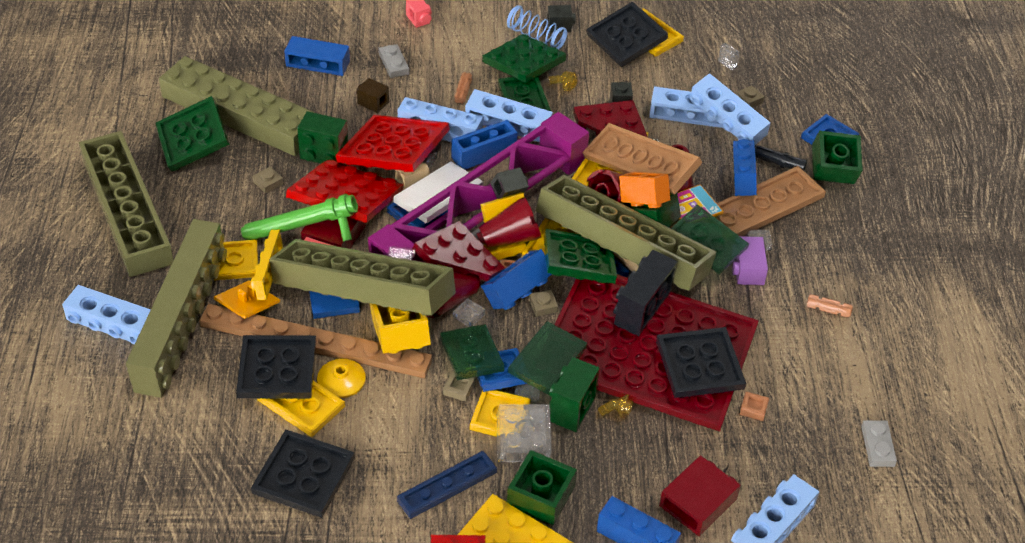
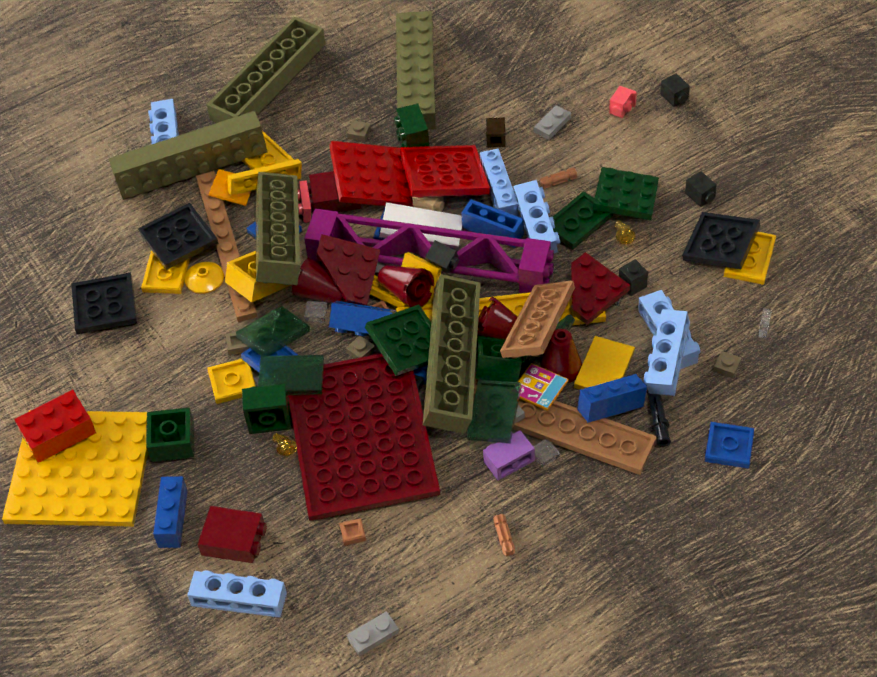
camera: 65 degrees right, 5 degrees up
(192, 133) = (360, 64): dark green plate -> none
(317, 56) = (511, 78): blue brick -> none
(331, 209) = (328, 173): bright green cylinder -> none
(401, 252) = (306, 232): clear tile -> none
(446, 484) = (148, 384): dark blue tile -> none
(520, 19) = (670, 153): light blue piece -> none
(521, 430) = (210, 398): clear brick -> none
(644, 188) = (492, 335): orange brick -> none
(644, 292) = (389, 396): black brick -> none
(700, 362) = (356, 470): black plate -> none
(712, 168) = (604, 363): none -> yellow tile
(837, 157) = (687, 457): dark green brick -> none

